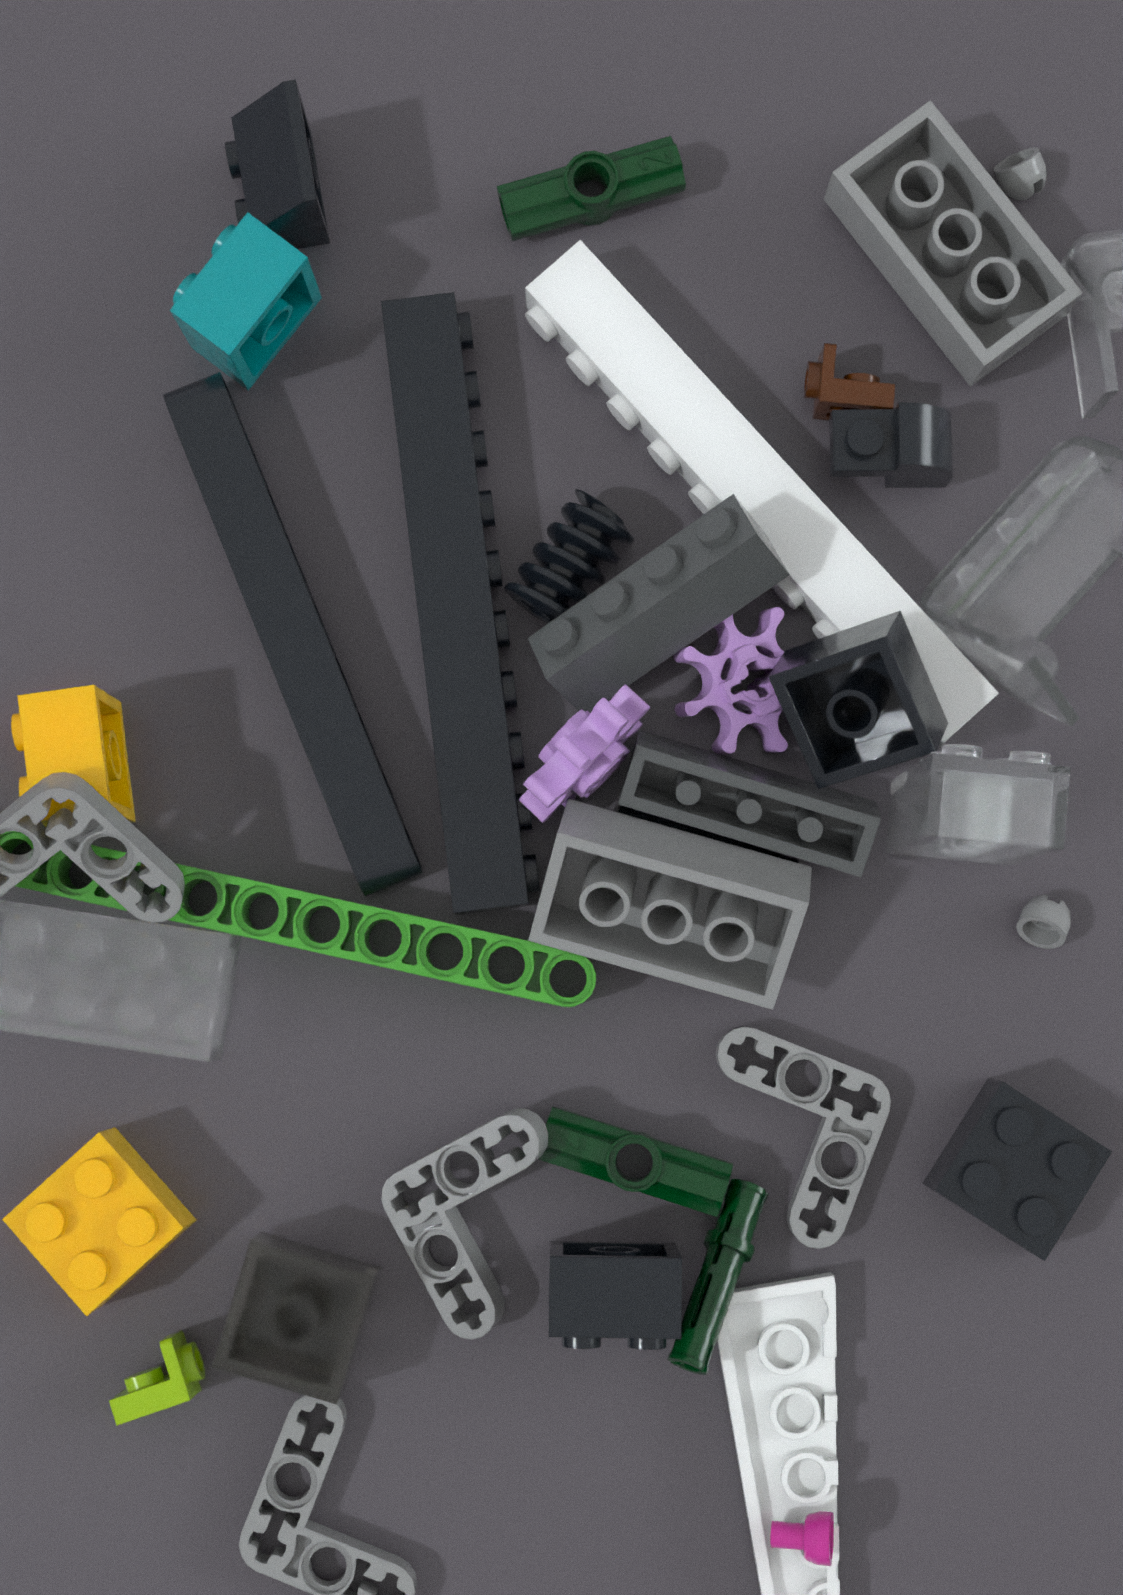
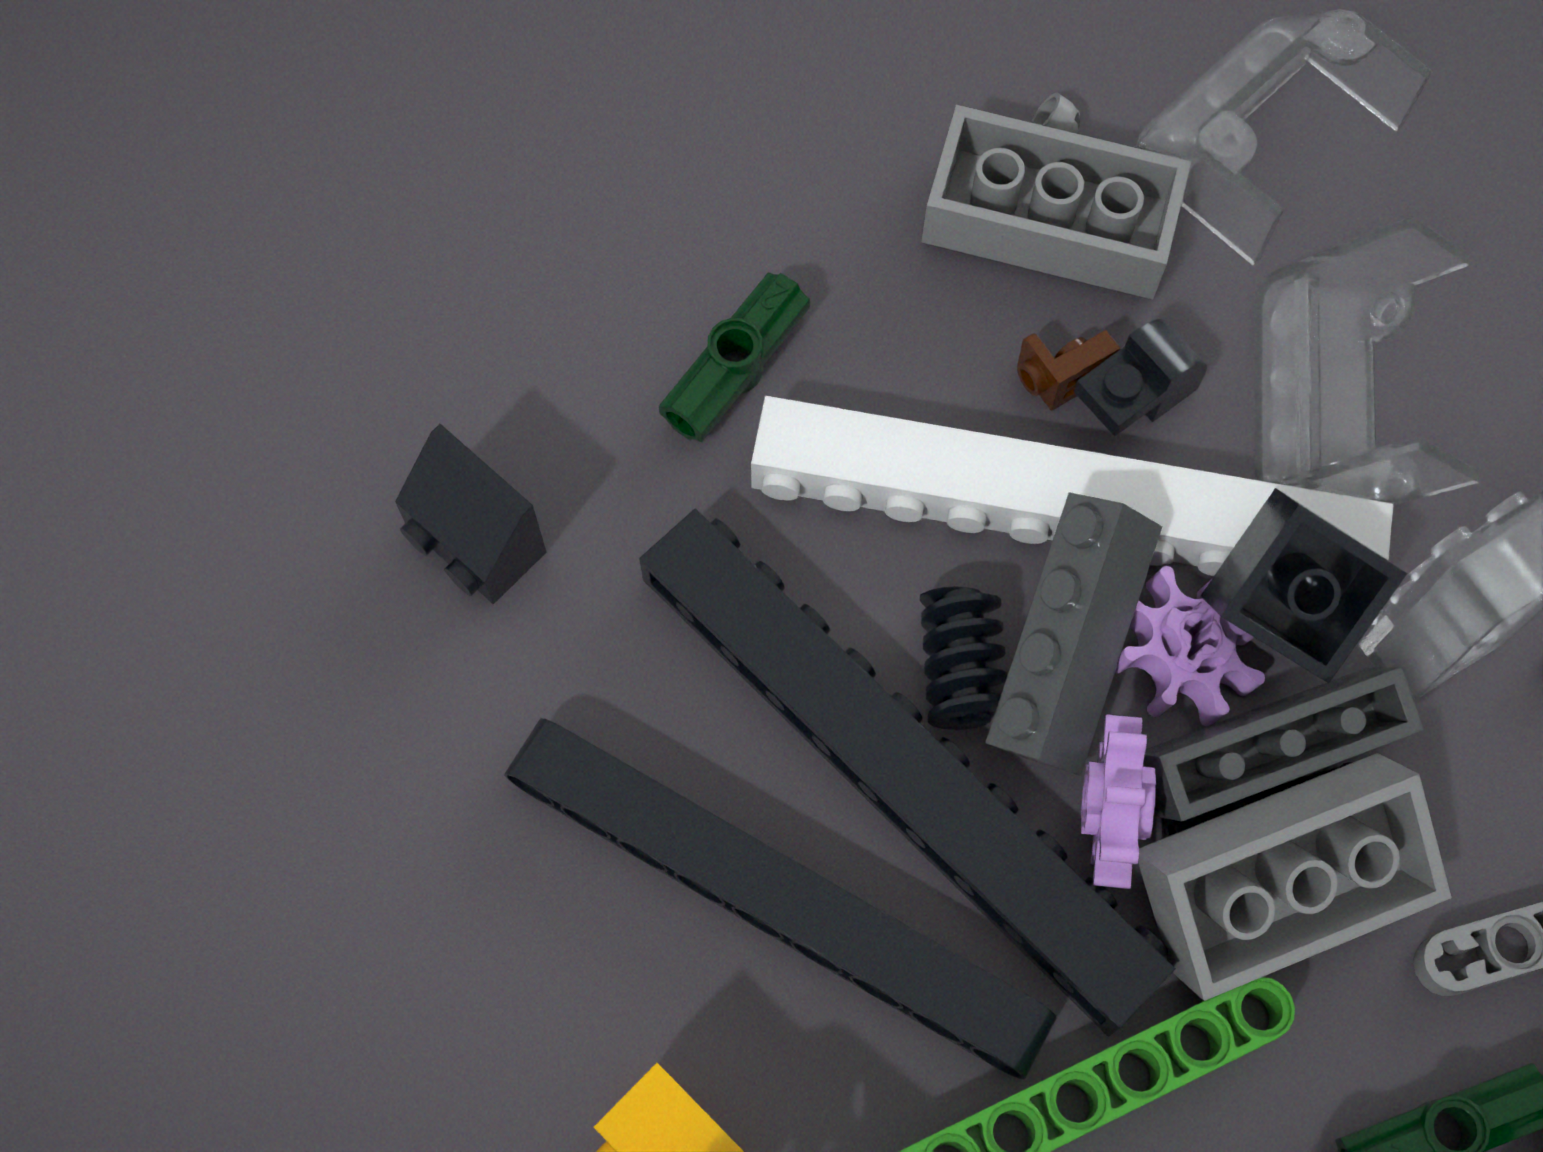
camera: 40 degrees left, 15 degrees down
(246, 300) = (522, 638): teal brick -> none

